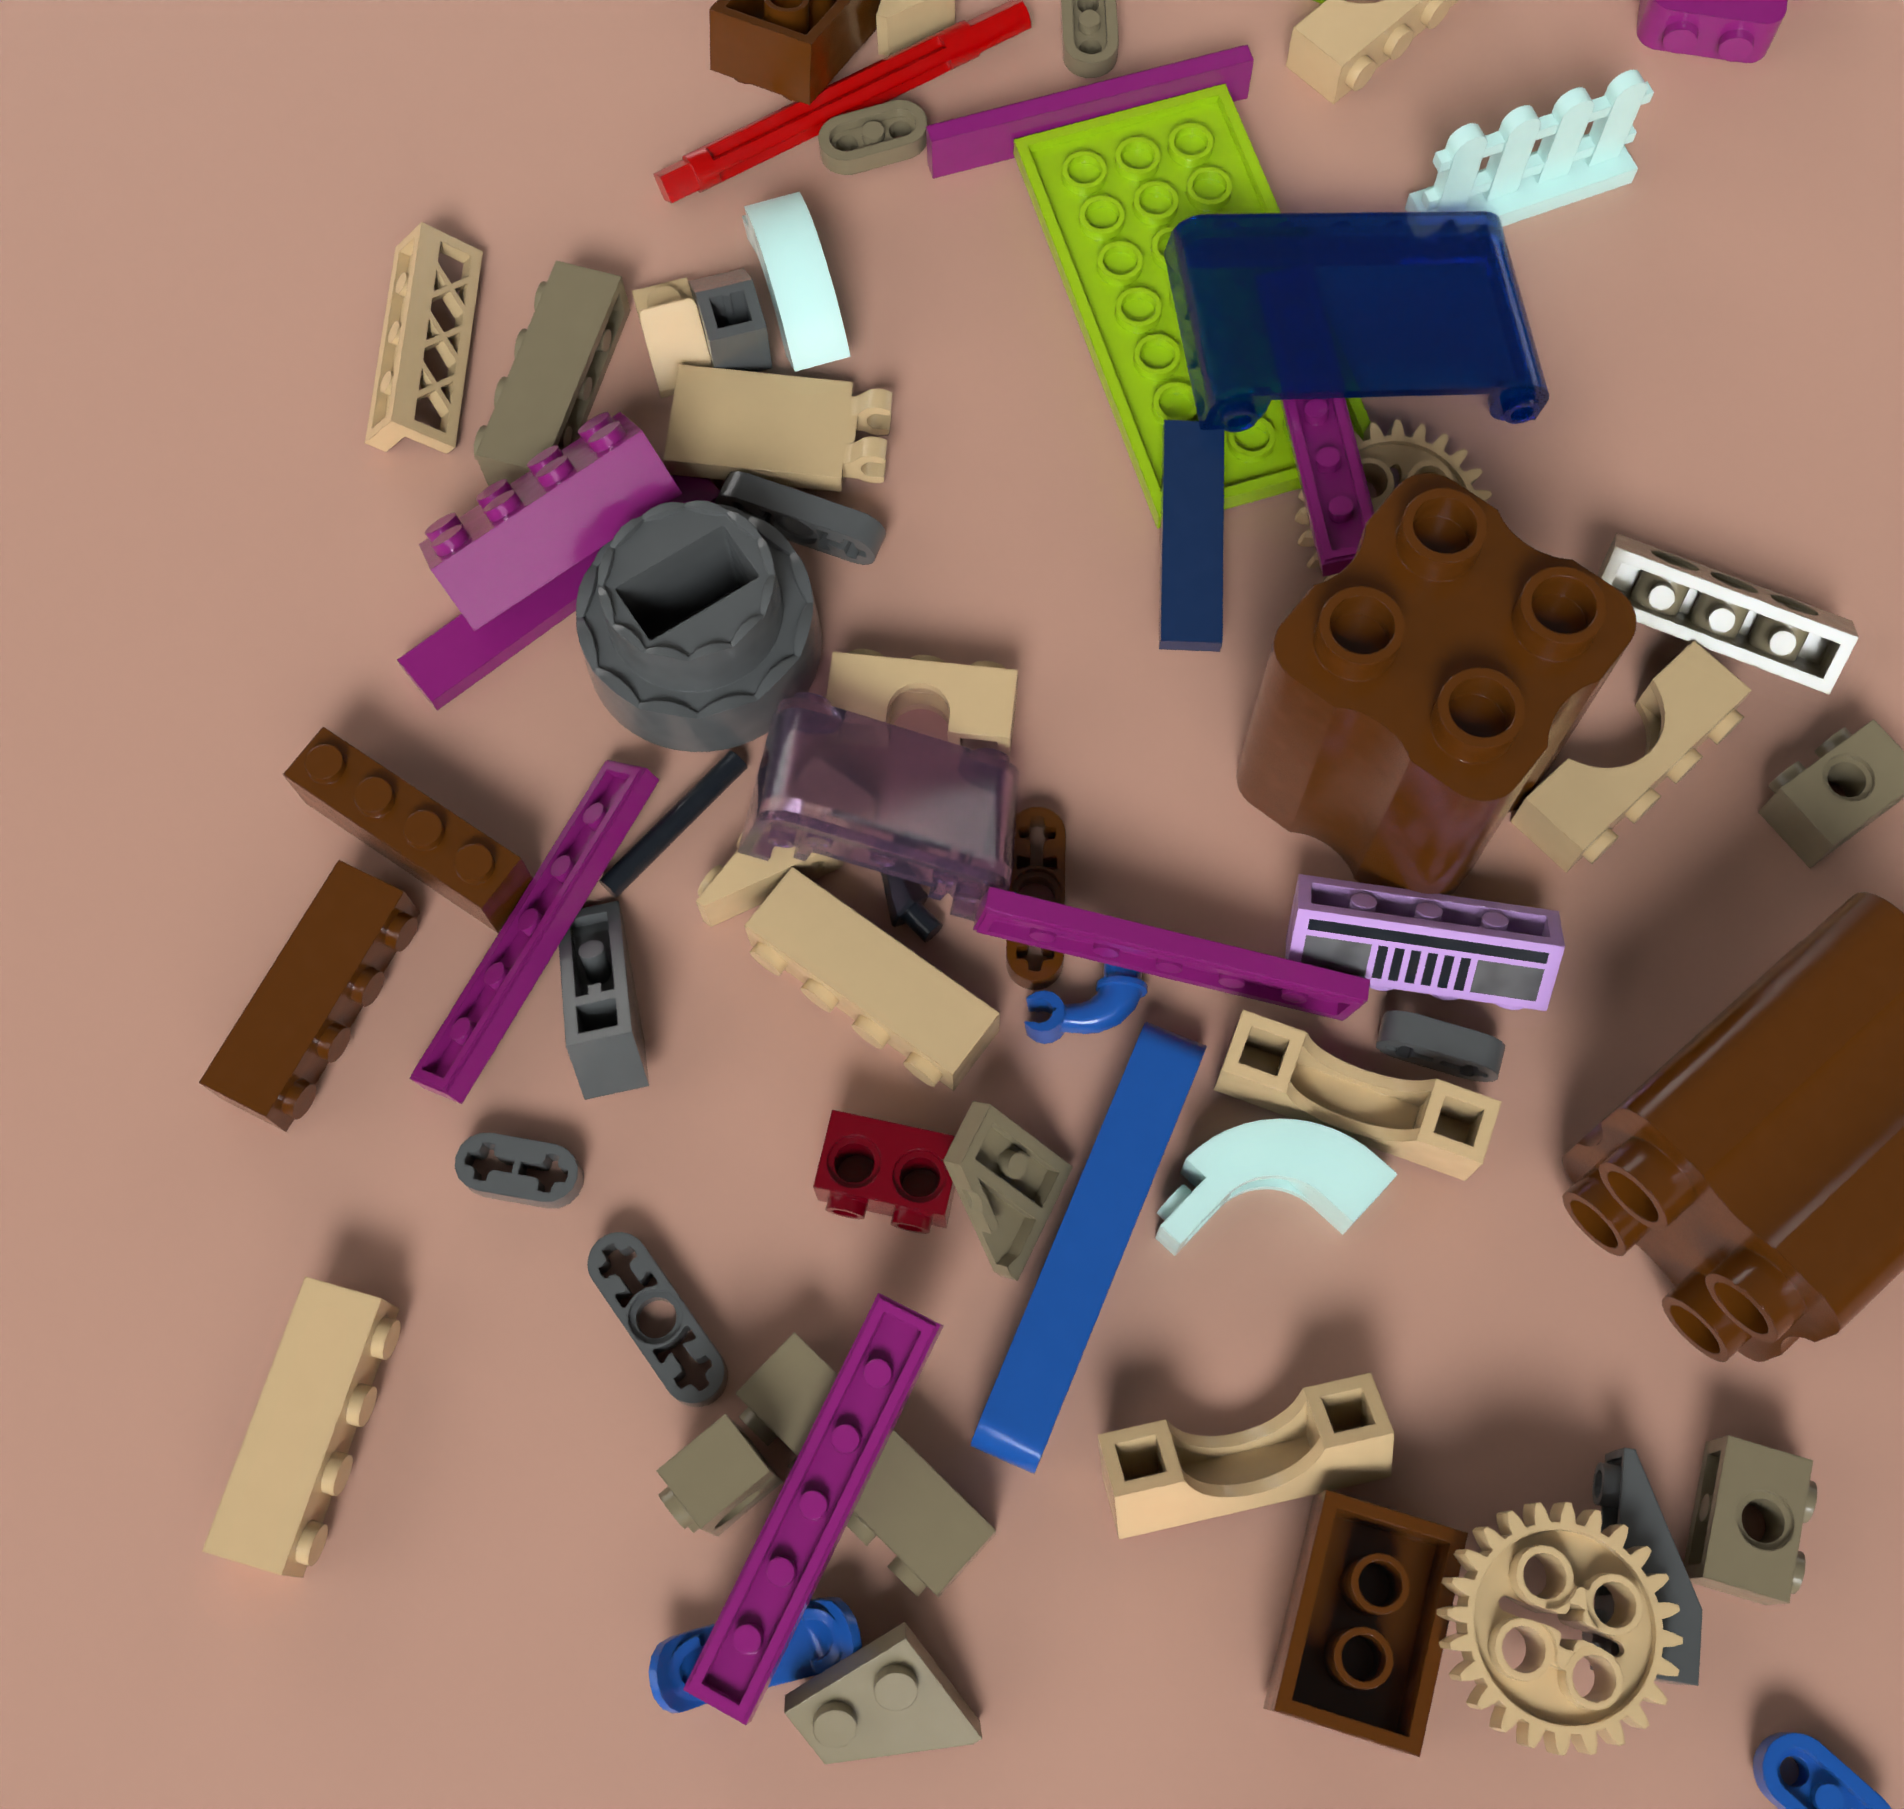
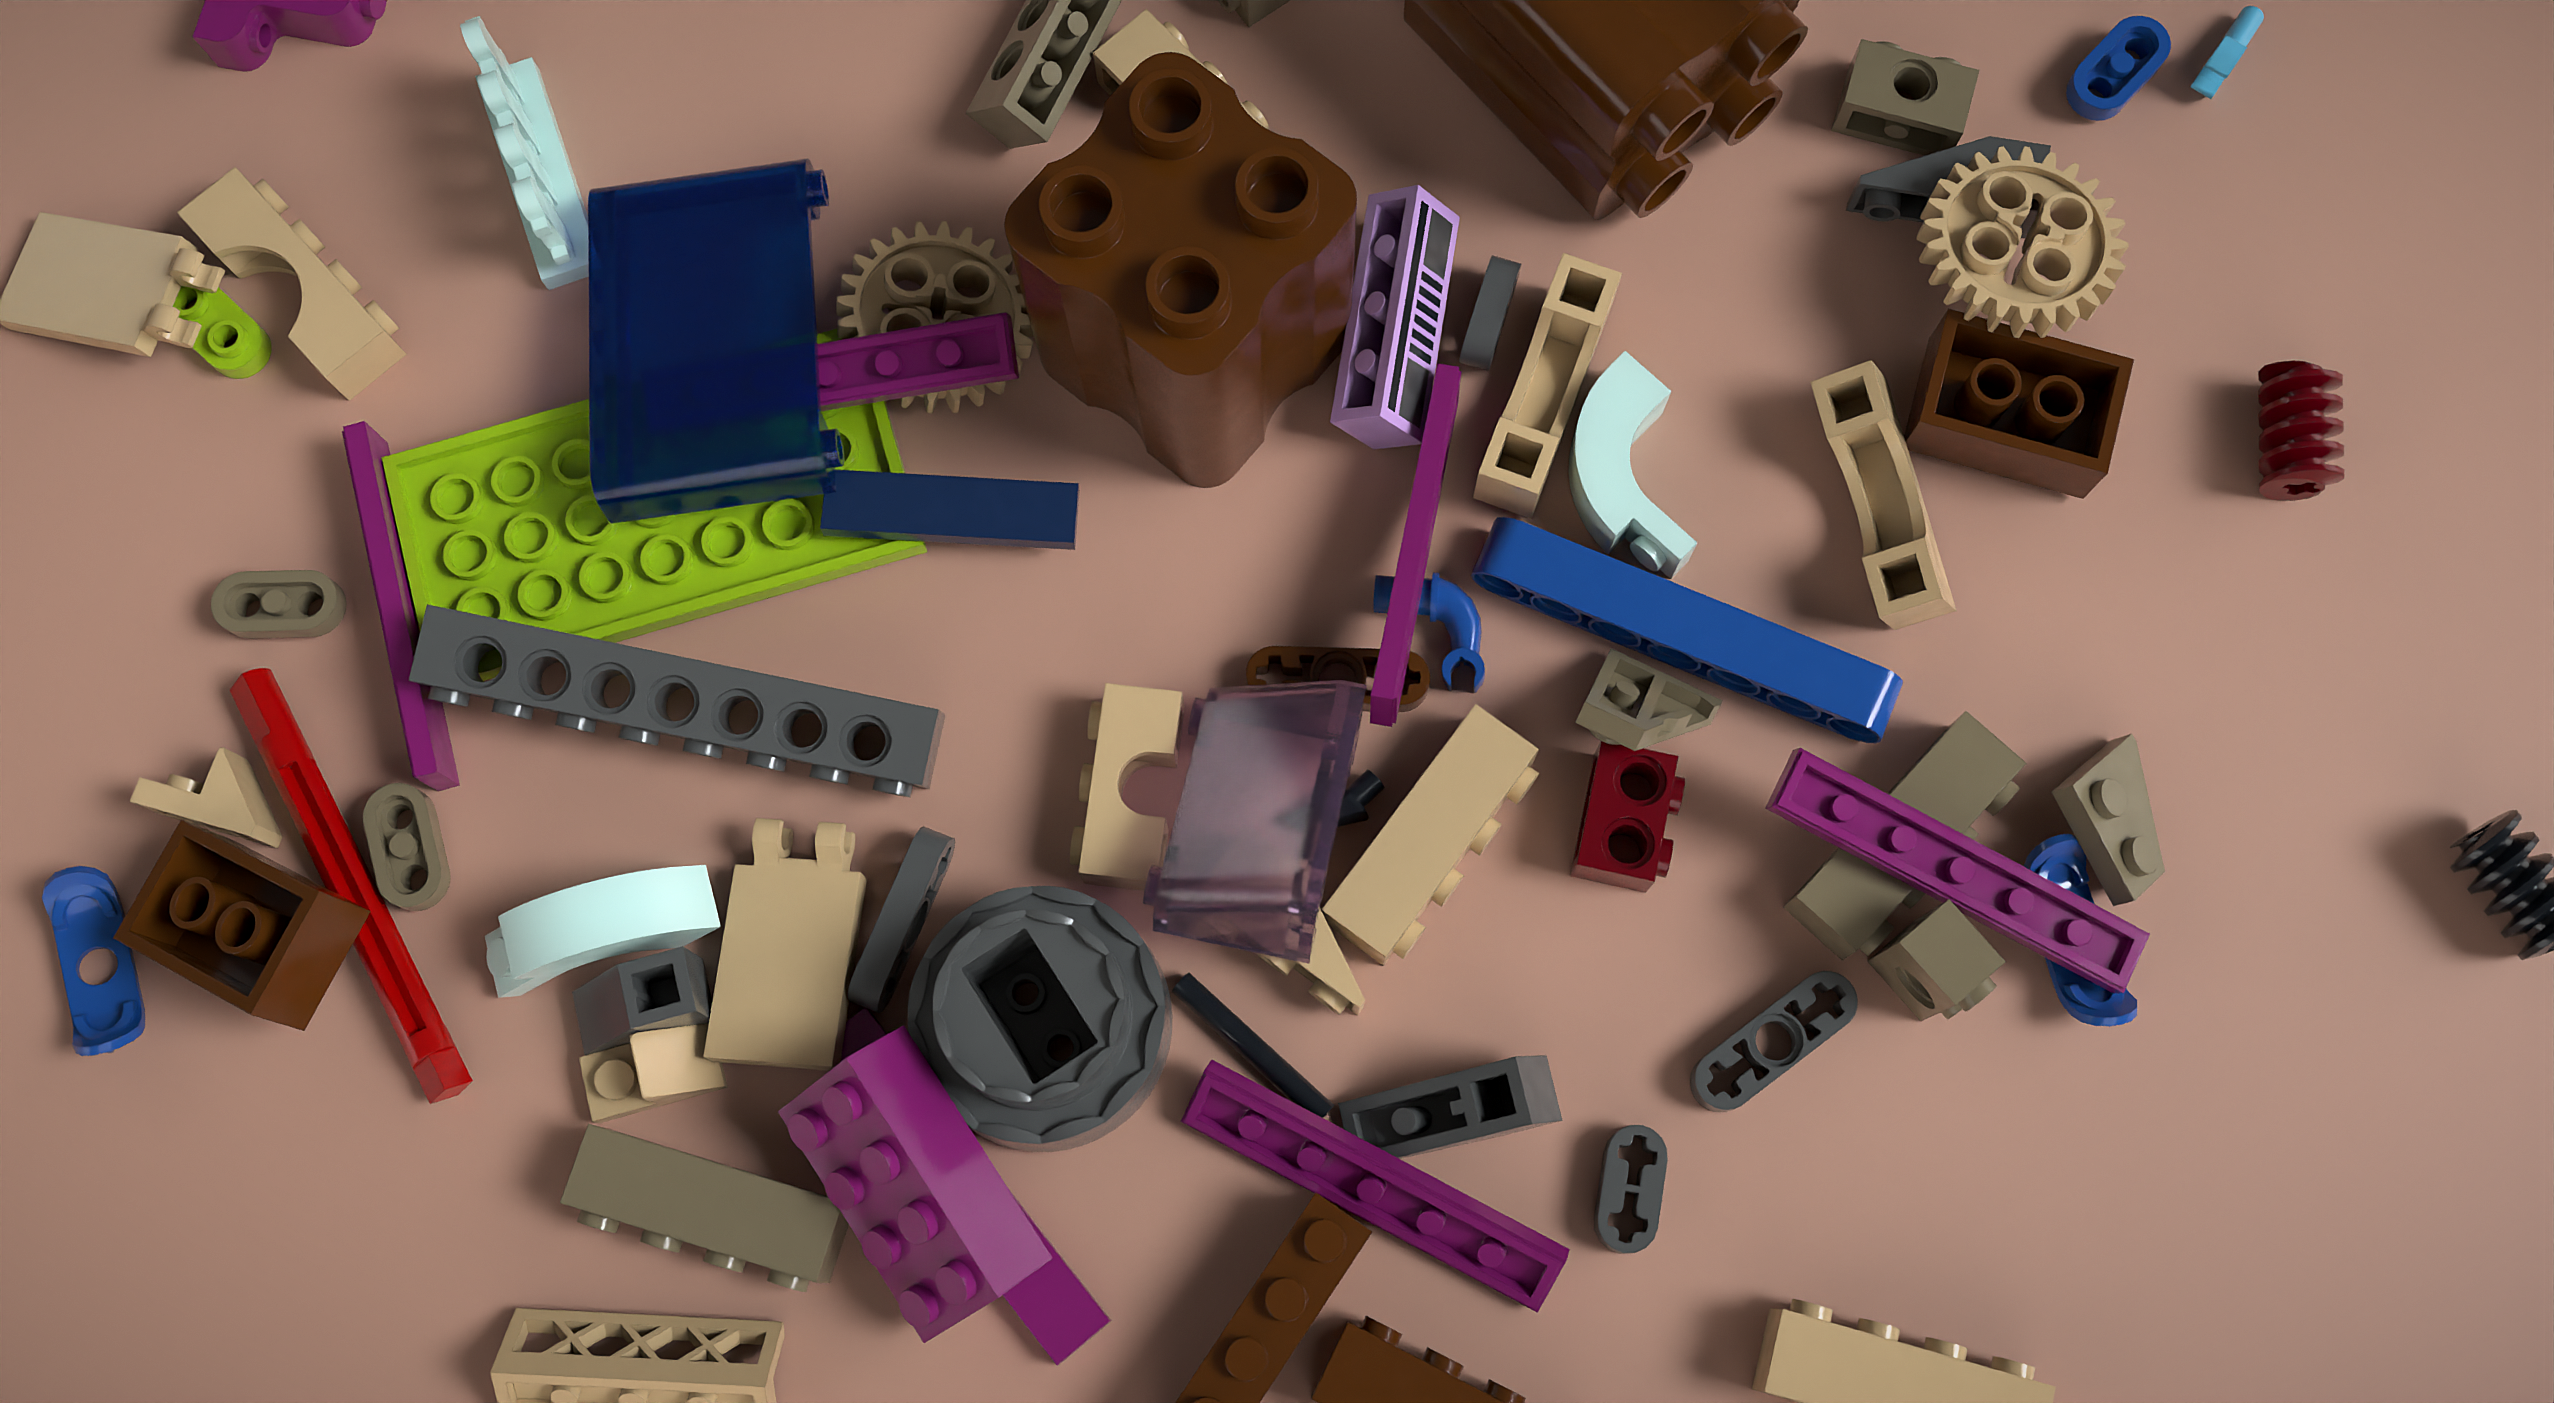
camera: 90 degrees left, 5 degrees up
(973, 513) = (457, 640): none -> dark grey brick

